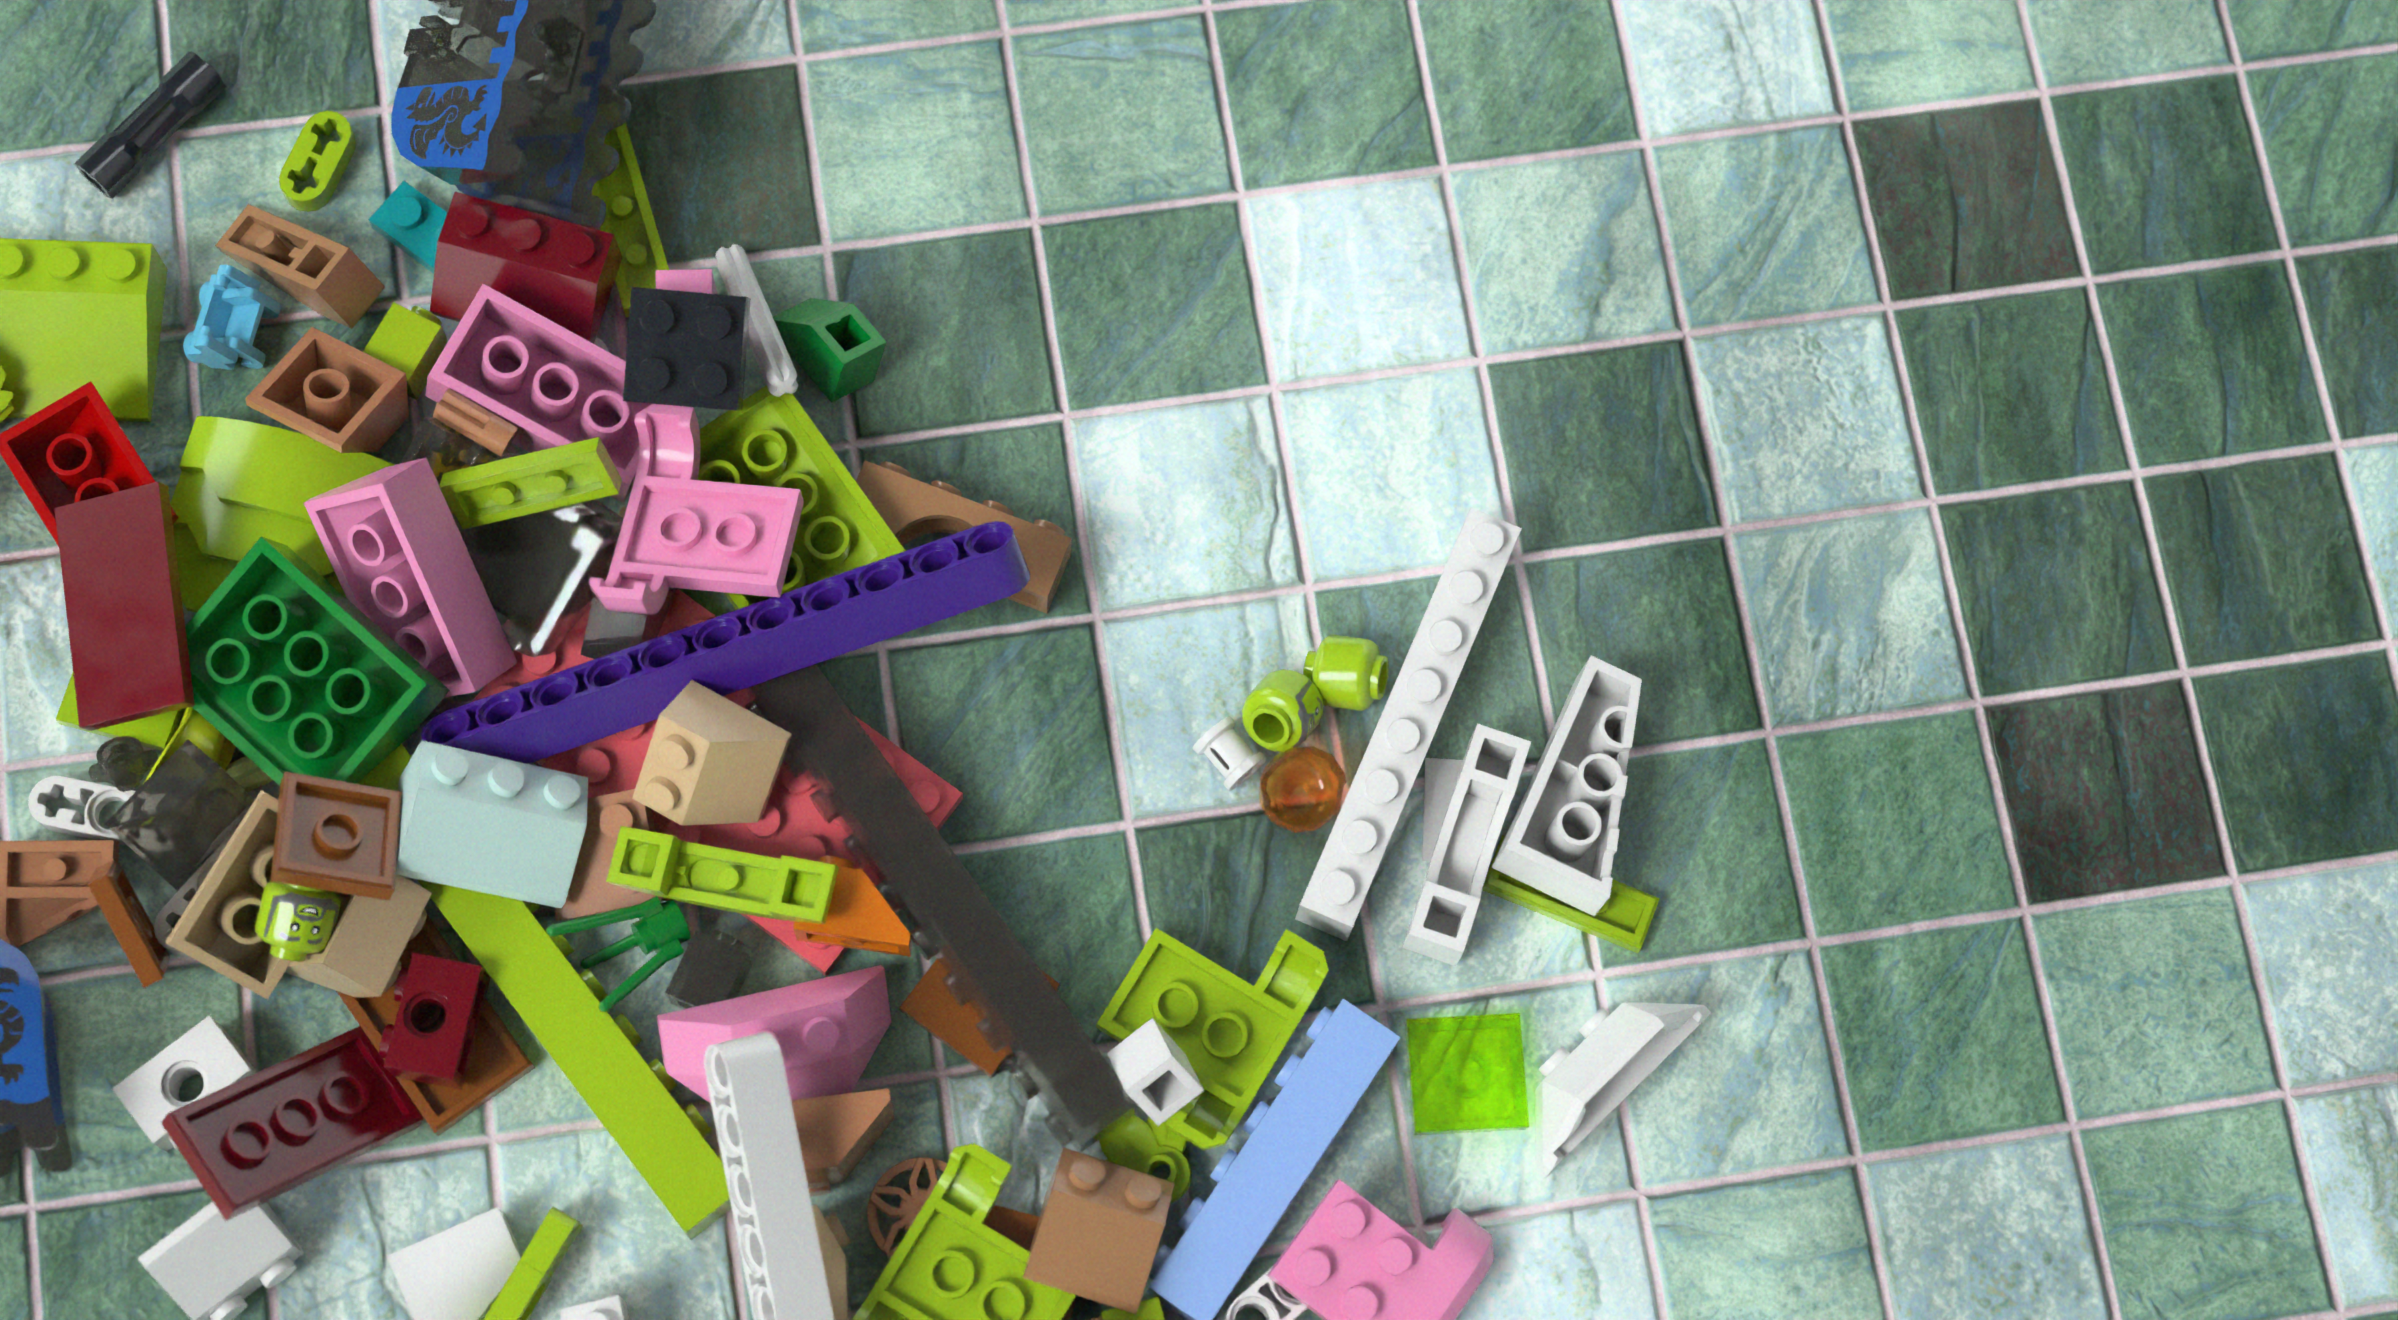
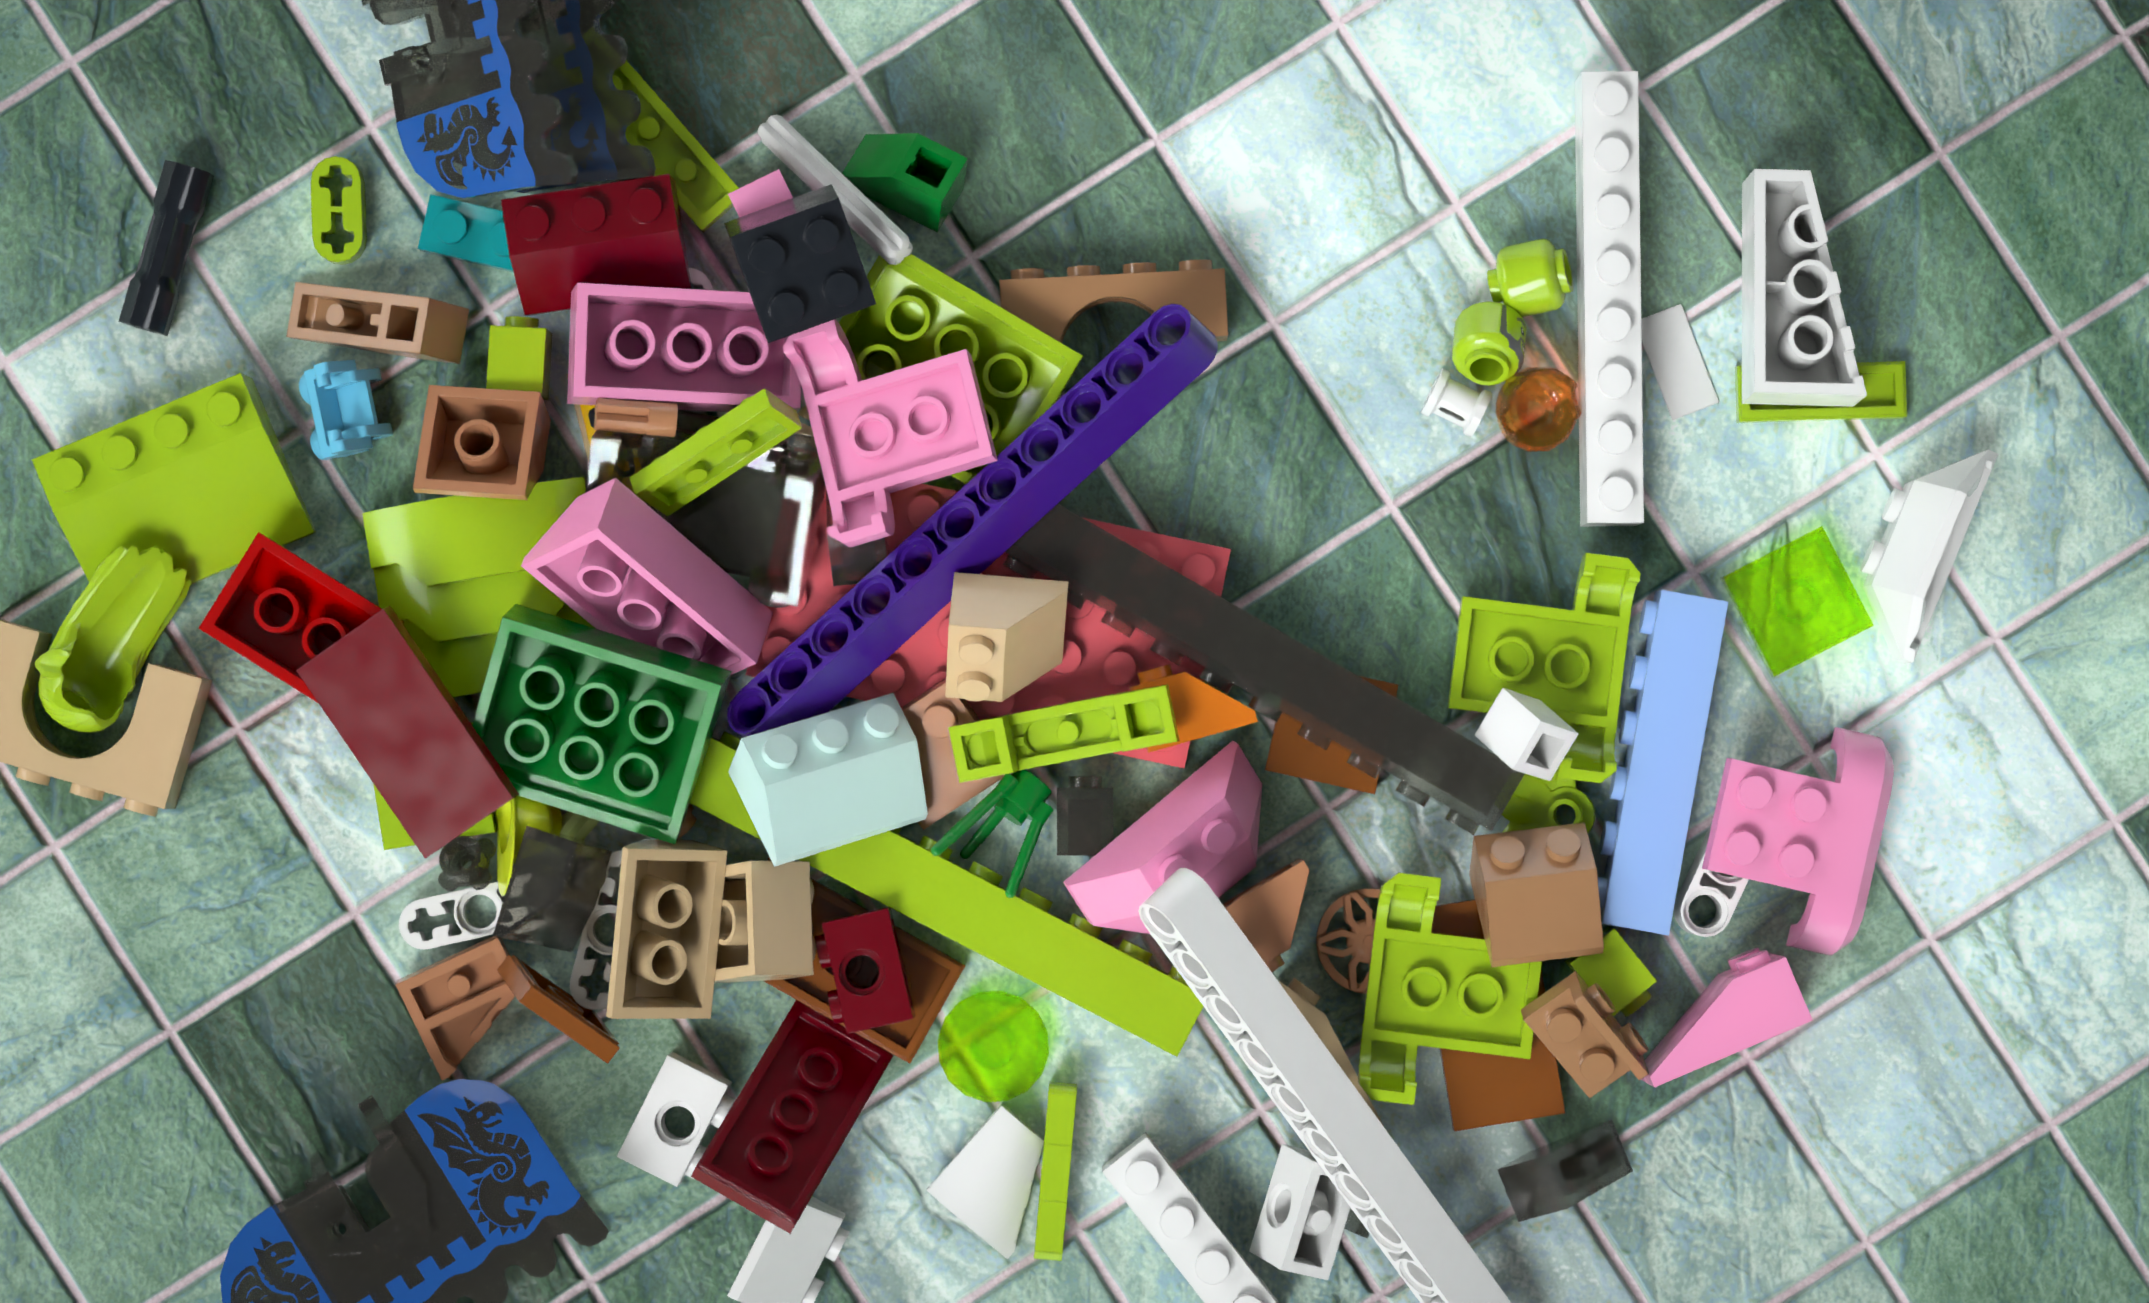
camera: 10 degrees left, 15 degrees up
(296, 919) = (709, 940): lime head -> none
(336, 836) = (711, 857): dark orange tile -> none
(521, 1152) = (993, 1046): none -> clear neon green tile
(1466, 845) = (1709, 397): white arch -> none

